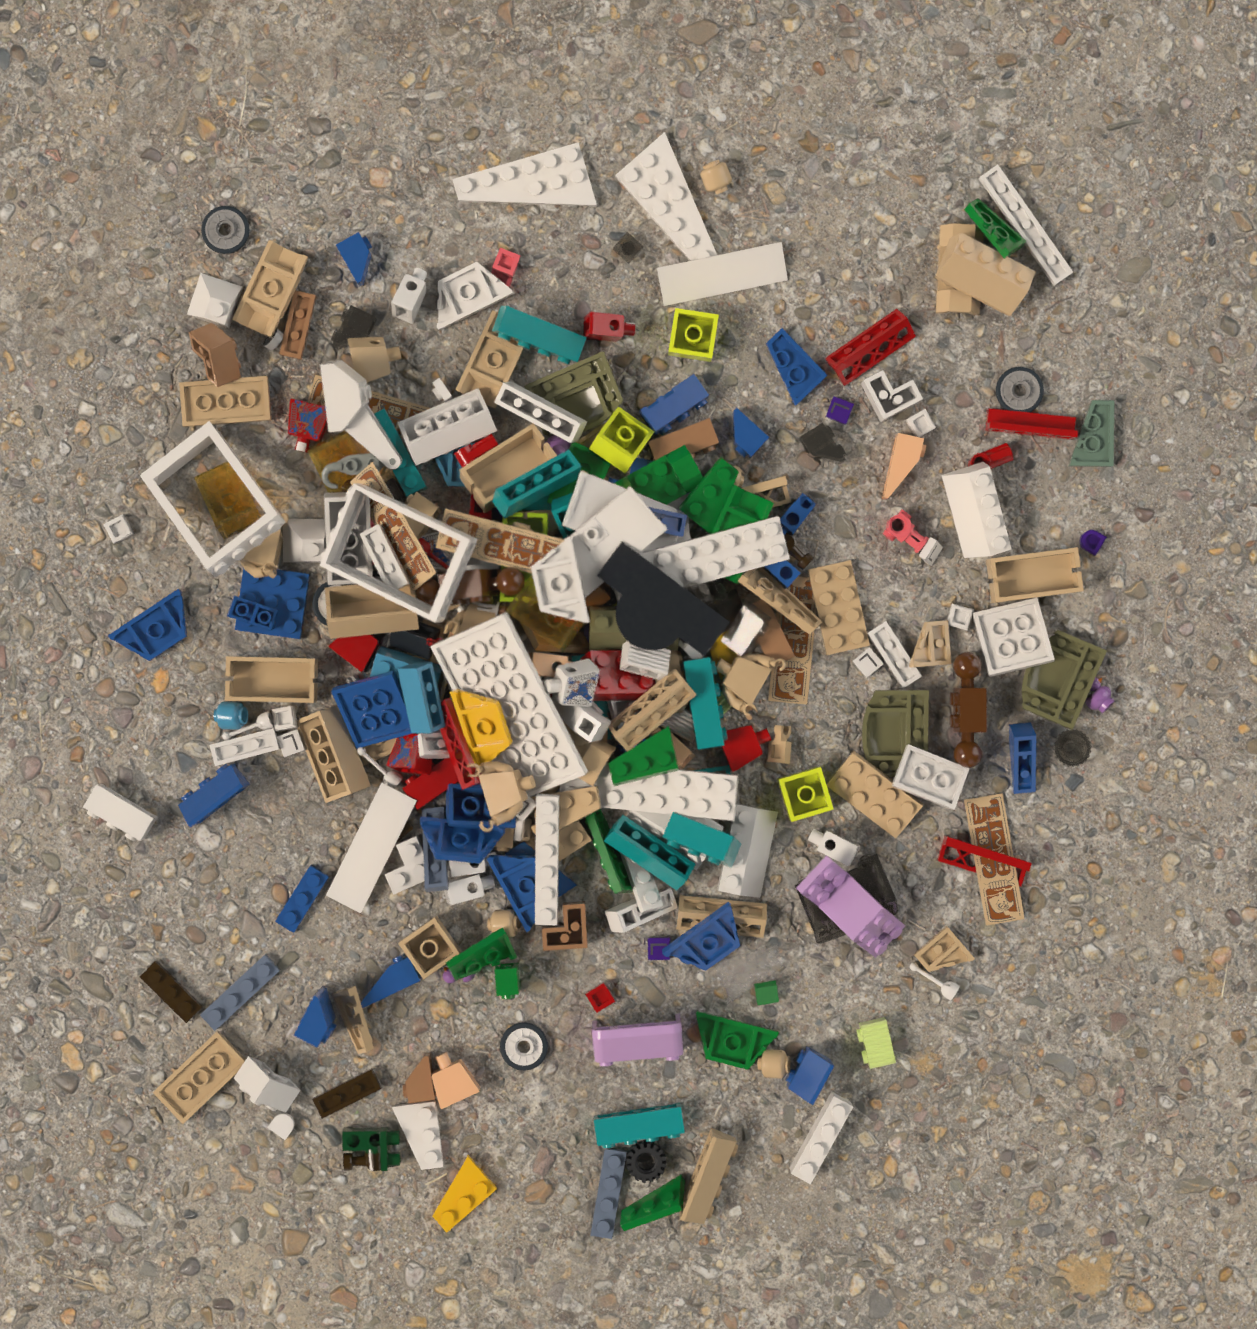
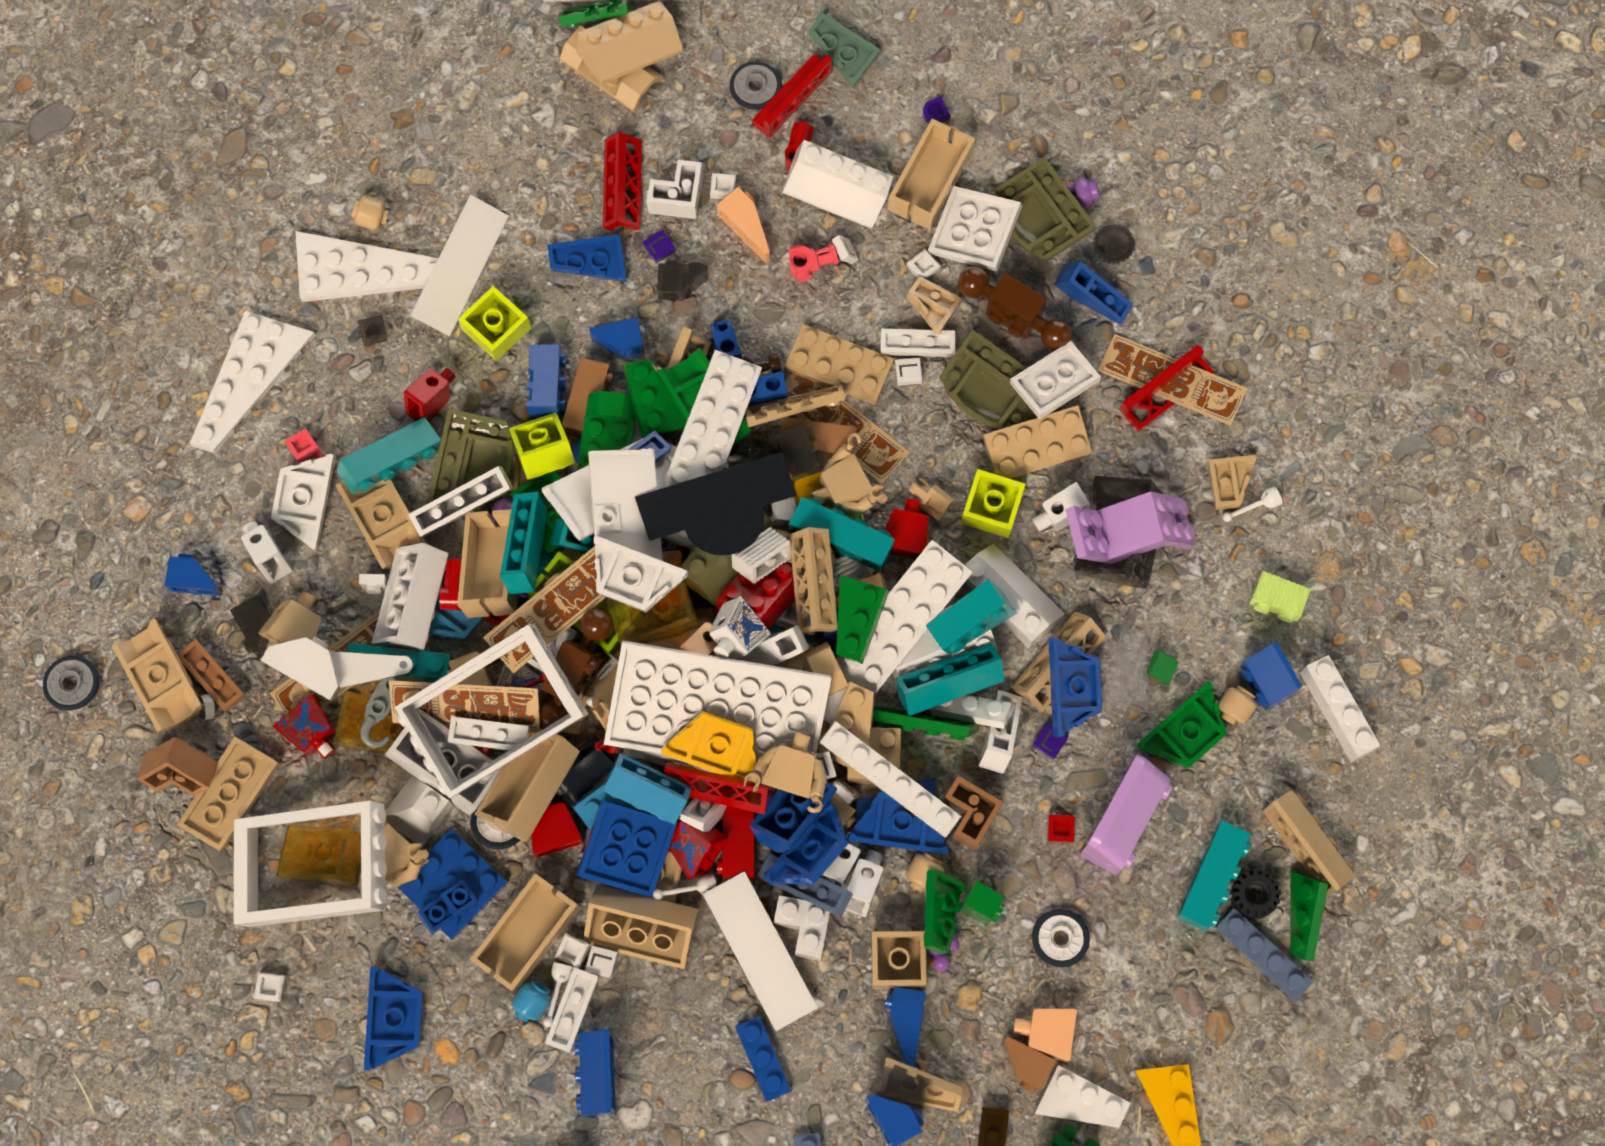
camera: 55 degrees left, 15 degrees down
(214, 300) = (127, 739): white slope -> none

